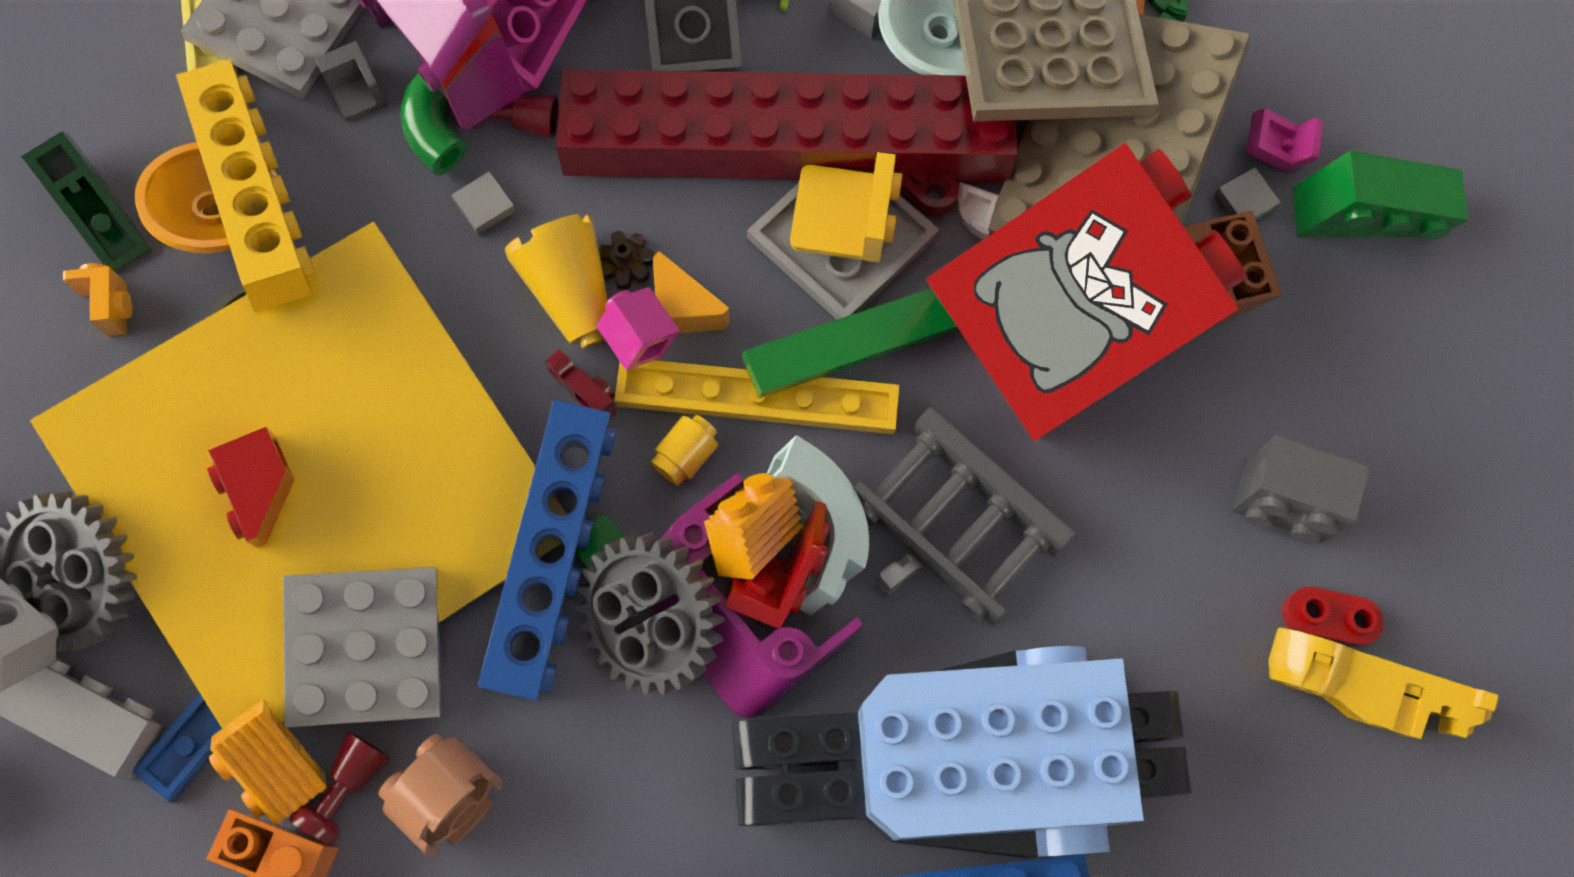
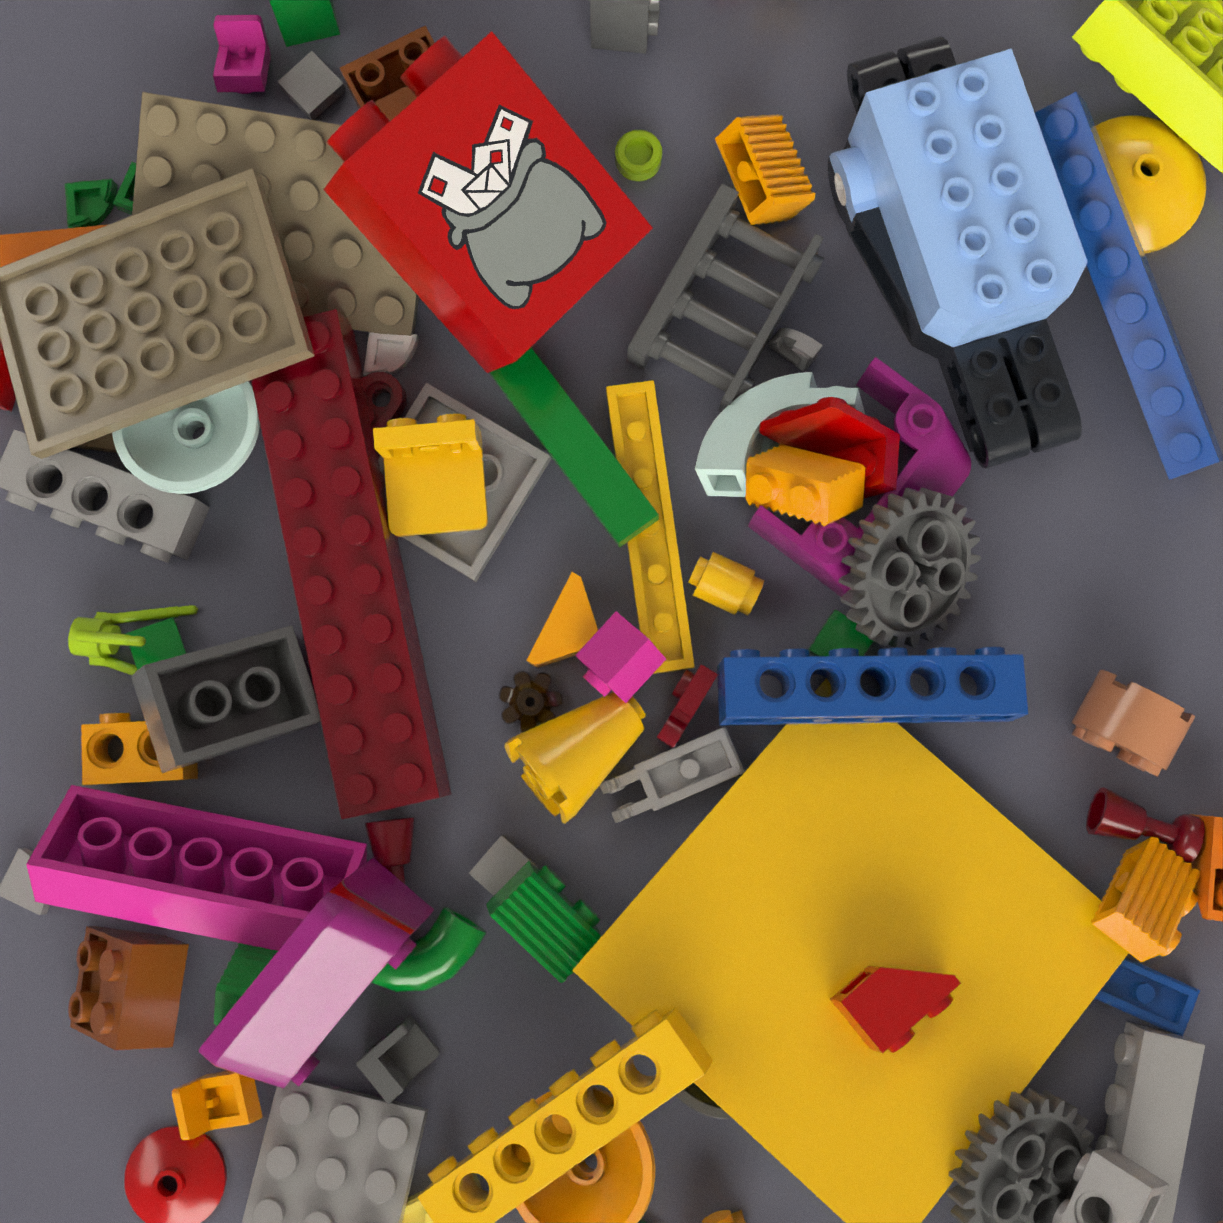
camera: 100 degrees left, 10 degrees up
(361, 647) = (1012, 845): light grey plate -> none
(428, 219) = (545, 919): none -> green brick
(522, 367) = (678, 773): none -> light grey hinge
(1085, 585) = (765, 168): none -> light orange brick
(1126, 475) = (638, 155): none -> lime tile

